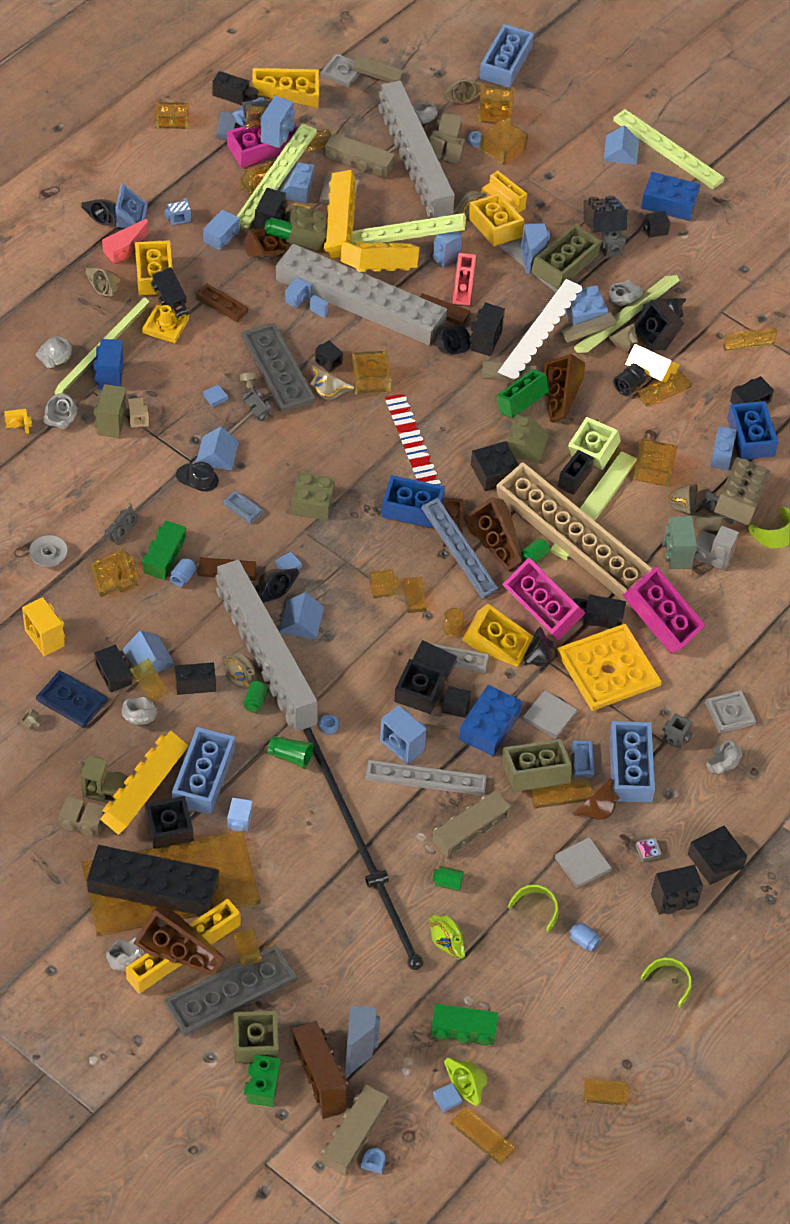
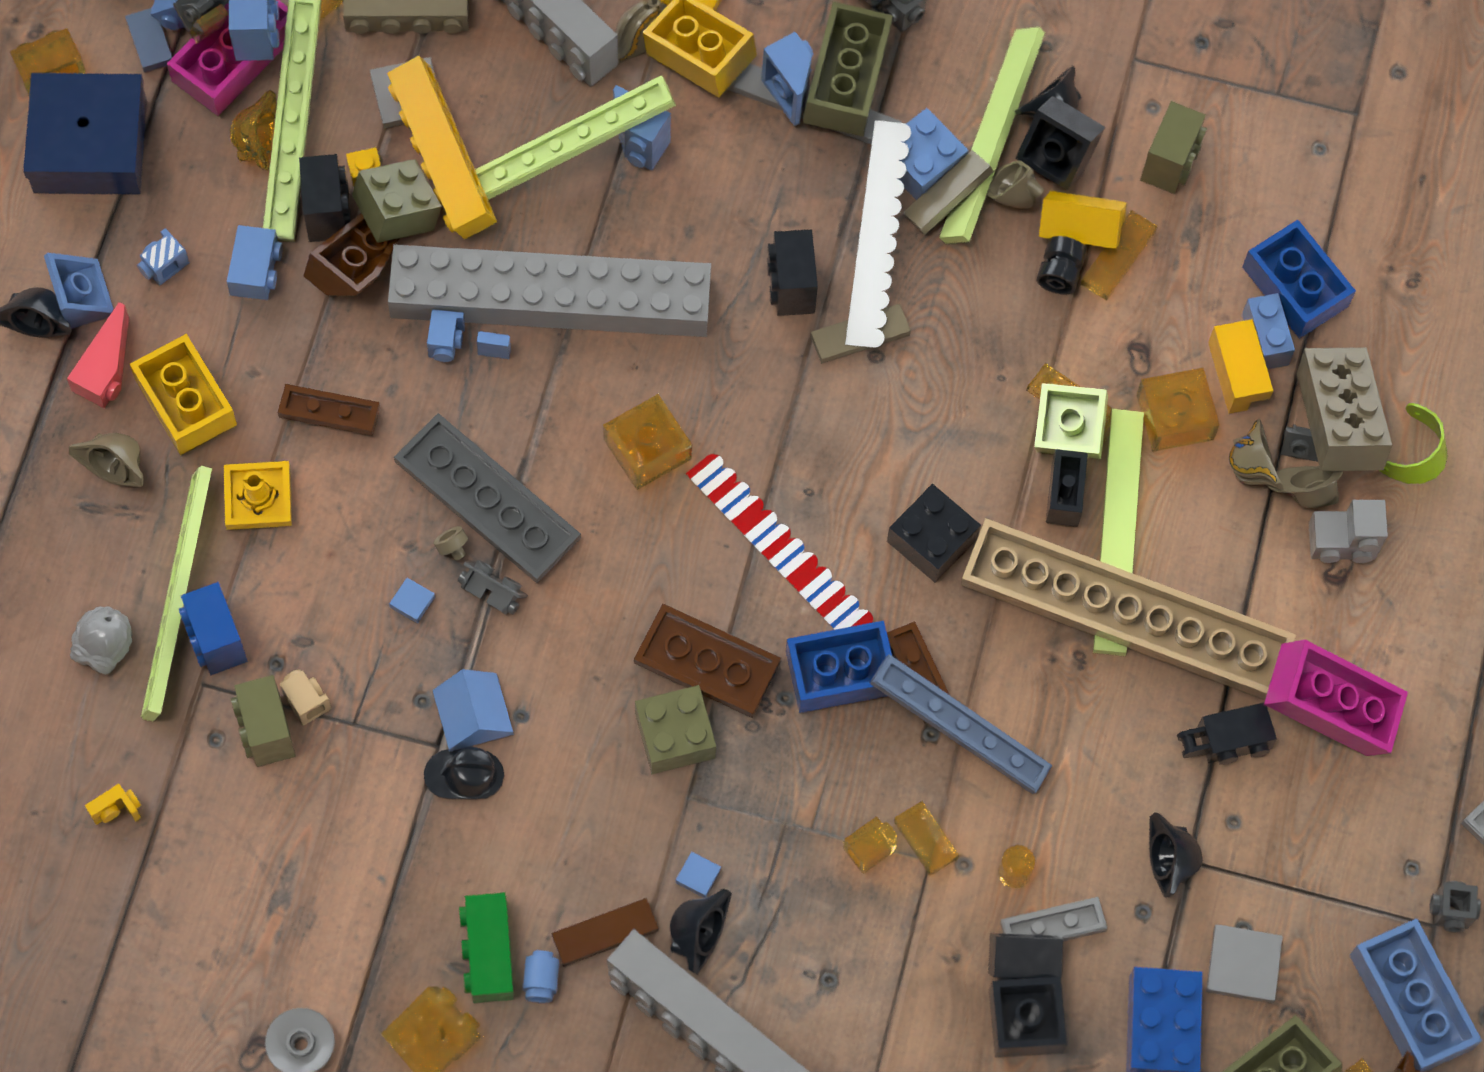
camera: 25 degrees left, 15 degrees up
(58, 413) = (175, 756): light grey hair -> none
(122, 525) = (392, 915): dark grey hinge -> none
(170, 291) = (242, 441): black brick -> none
(171, 148) = (85, 133): none -> dark blue container
(243, 507) = (568, 798): sand blue tile -> none
(278, 228) = (357, 227): green brick -> none
(298, 182) = (332, 110): medium blue slope -> none
(302, 617) = (771, 969): medium blue slope -> none
(328, 356) = (559, 438): black brick -> none
(328, 386) = (589, 500): dark tan hat -> none
(350, 476) = (707, 657): none -> reddish brown plate
(379, 256) = (549, 207): yellow wedge -> none
(453, 340) = (746, 316): black piece -> none
(454, 313) = (723, 255): reddish brown tile -> none
(455, 701) = (1093, 1014): black brick -> none
(464, 279) = (703, 185): coral slope -> none
(496, 531) = (994, 656): reddish brown wedge -> none
(497, 636) = (1096, 859): yellow slope -> none
(522, 393) = (909, 372): green brick -> none
(527, 439) = (957, 457): olive slope -> none
(536, 550) = (1075, 669): green brick -> none
(543, 598) = (1138, 760): dark pink brick -> none
(564, 380) = (960, 320): reddish brown wedge -> none
(583, 759) = (1332, 1020): medium blue tile -> none
(612, 648) = (1293, 792): yellow piece -> none
(624, 293) = (977, 94): light grey hair -> none
(679, 542) = (1293, 551): sand green brick -> none
(699, 455) = (1240, 365): none -> yellow piece
(717, 349) = (1174, 148): none -> olive brick
(750, 339) = (1218, 89): clear yellow tile -> none
(752, 391) = (1261, 207): black brick -> none

